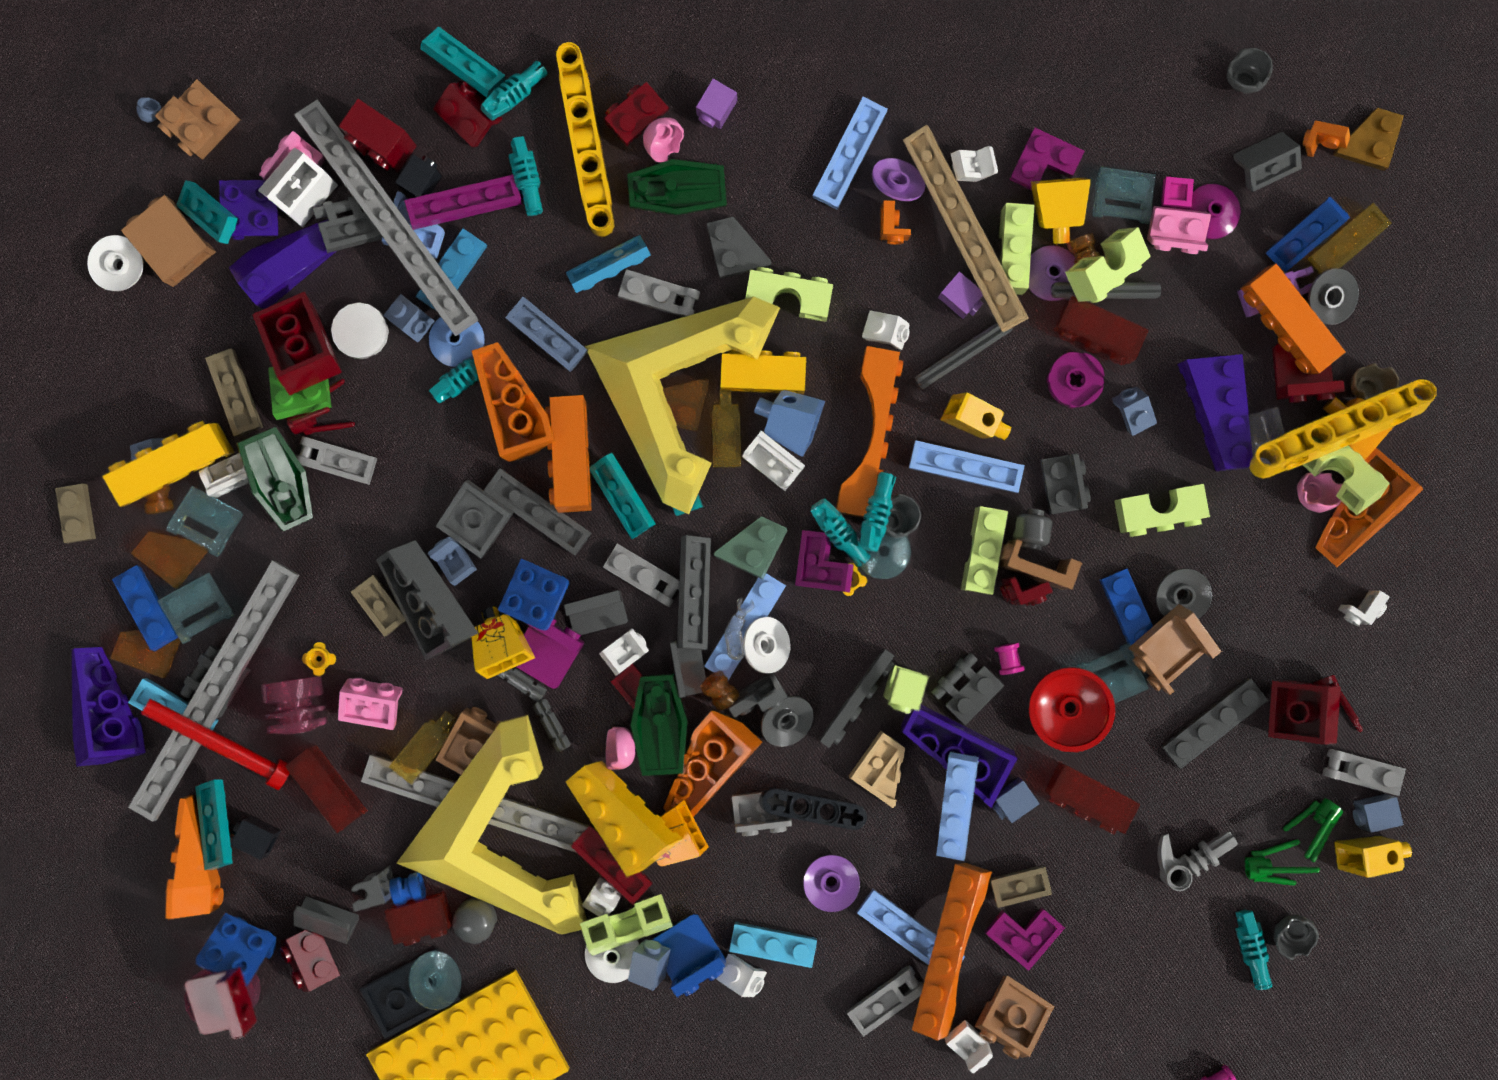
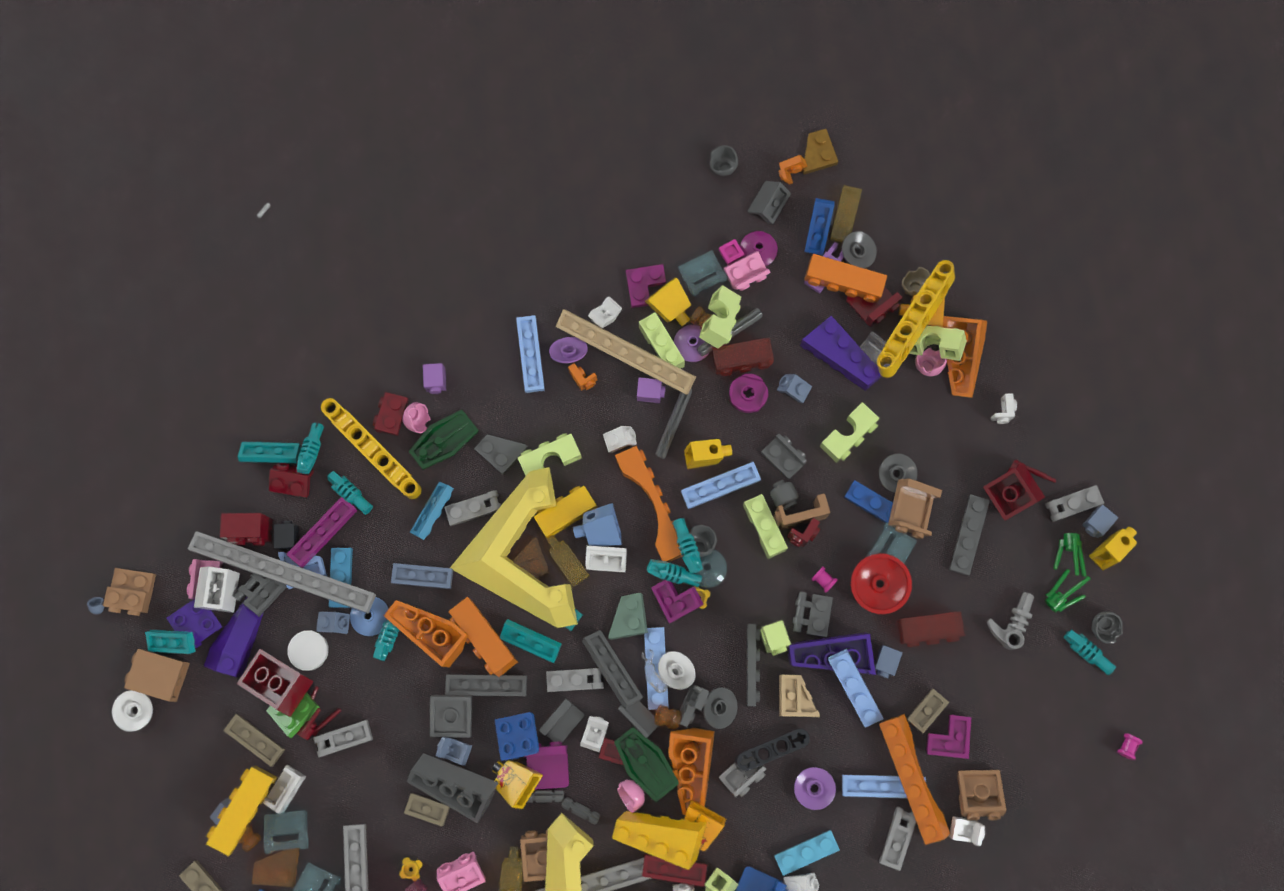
camera: 25 degrees left, 10 degrees down
(276, 478) = (314, 773): piece -> none

